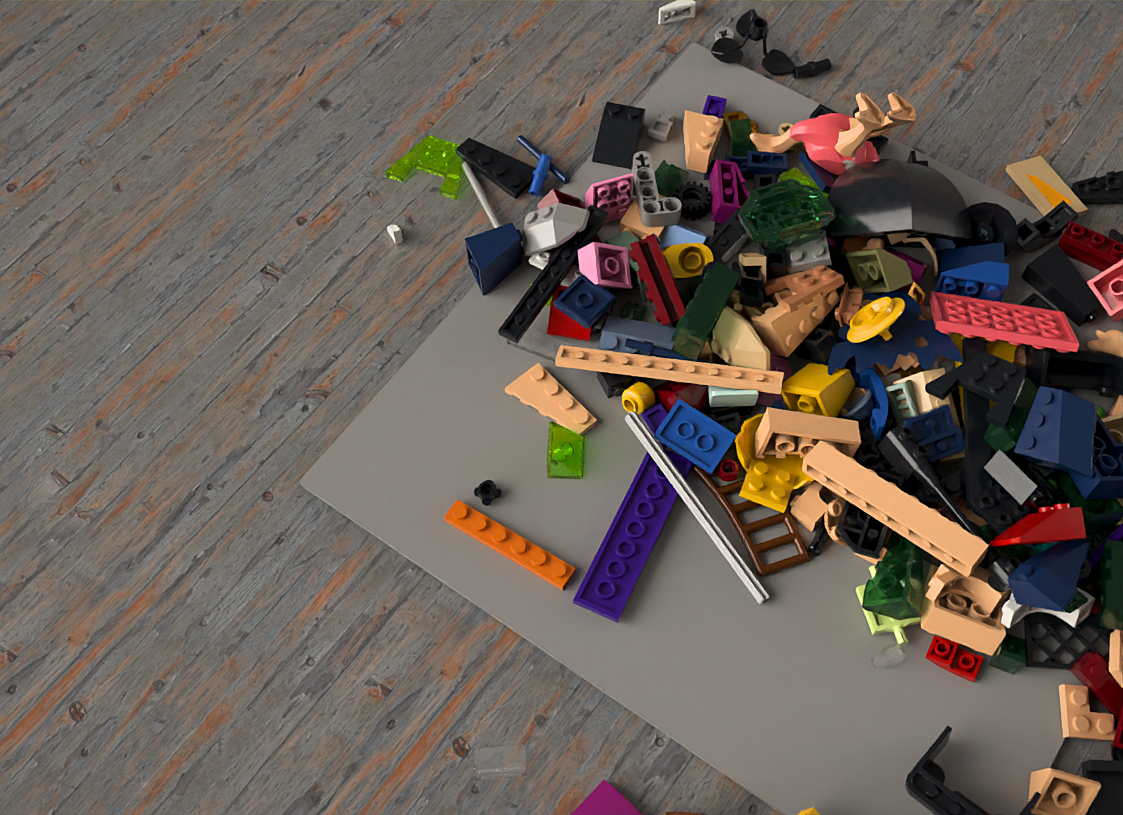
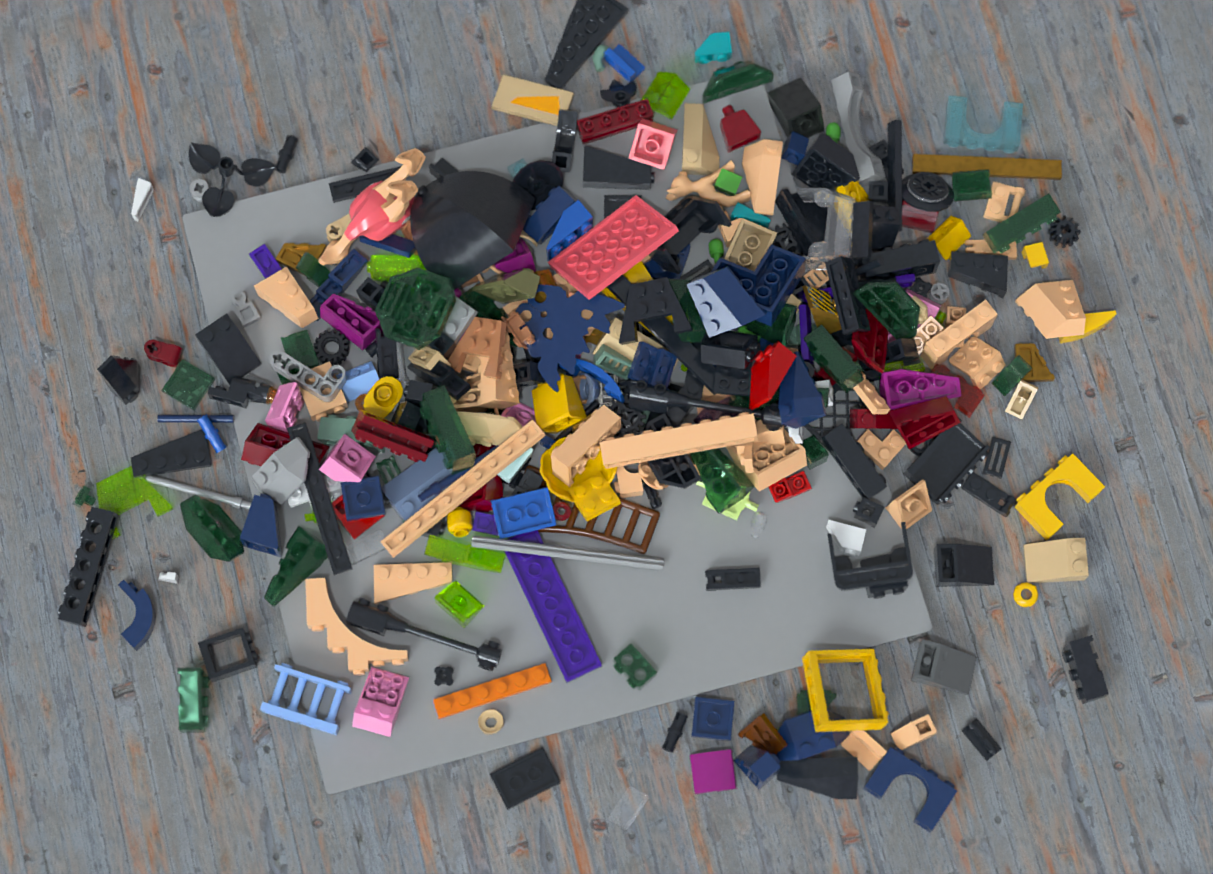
camera: 55 degrees left, 15 degrees up
(301, 318) = (193, 700): none -> clear green wedge
(343, 240) = (144, 620): none -> dark blue arch
(349, 303) = (208, 660): none -> black window
(353, 173) = (91, 577): none -> black brick
(356, 413) = (310, 718): none -> light blue fence
(409, 133) = (83, 497): none -> clear green tile
(417, 458) = (380, 701): none -> bright pink slope
(450, 640) = (525, 778): none -> black tile
(456, 358) = (339, 638): none -> light nougat arch
(461, 220) = (212, 528): none -> clear green wedge
(478, 556) = (490, 714): none -> tan piece
(491, 309) = (303, 558): none -> clear green wedge
(493, 404) = (379, 620): none -> black bar
(526, 79) = (121, 377): none -> black wedge
(565, 138) = (188, 385): none -> clear green tile
(574, 102) = (166, 353): none -> dark red piece
(590, 166) = (243, 390): none -> black plate
(612, 424) = (464, 554): none -> clear neon green slope
(614, 745) = (674, 732): none -> black pin
(644, 651) = (639, 664): none -> clear green brick
(659, 773) = (712, 719): none -> dark blue plate
(814, 677) = (733, 579): none -> black plate
(875, 319) = (549, 330): yellow piece -> none
(964, 756) = (847, 537): none -> white slope
(1015, 749) = (874, 509): none -> black brick
(1042, 699) = (853, 462): none -> black brick

